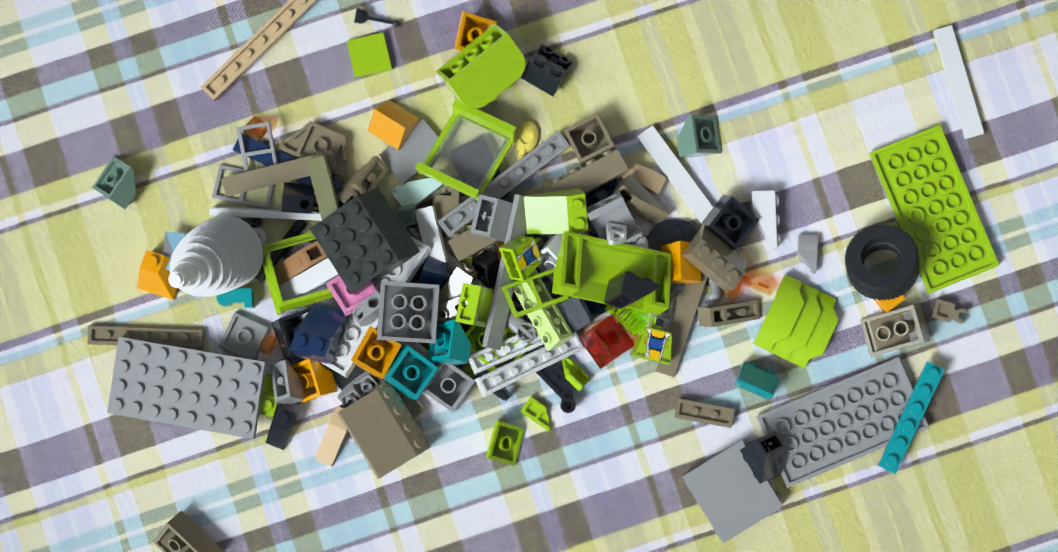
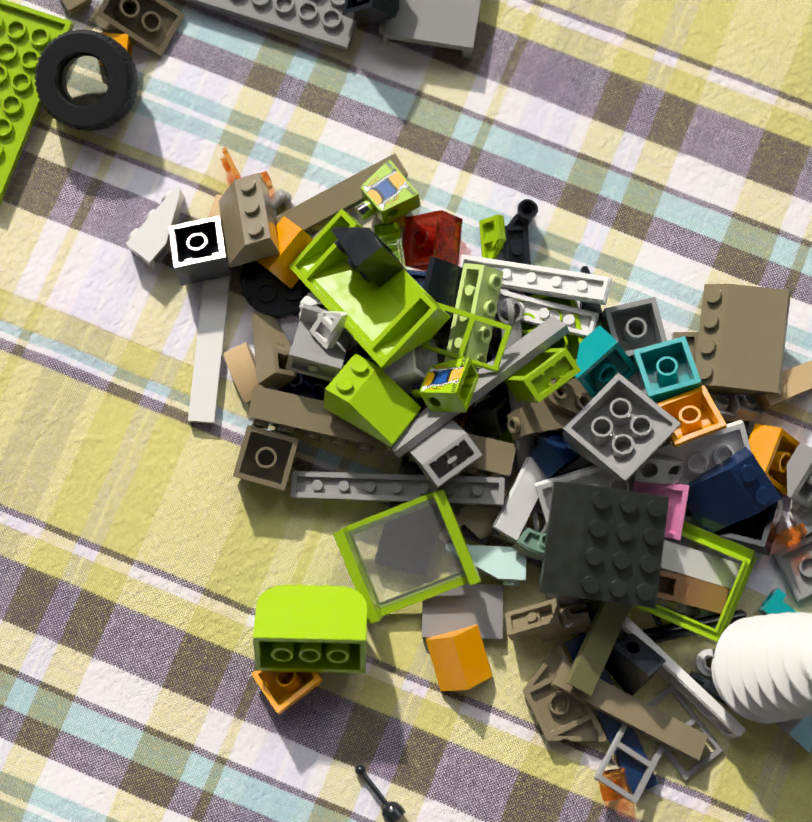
camera: 140 degrees left, 5 degrees down
(369, 55) = (420, 760): lime tile -> none
(505, 443) = (623, 230): lime slope -> none
(526, 138) = (331, 519): light yellow piece -> none
(536, 412) = (563, 234): lime tile -> none
(547, 69) = (243, 572): black slope -> none
(699, 137) = (152, 365): sand green slope -> none
(704, 413) = (396, 94): dark tan plate -> none
(728, 313) = (286, 167): dark tan slope -> none
(756, 381) = (317, 78): teal slope -> none
(797, 322) = (222, 101): lime slope -> none
(808, 250) = (149, 161): light grey slope -> none

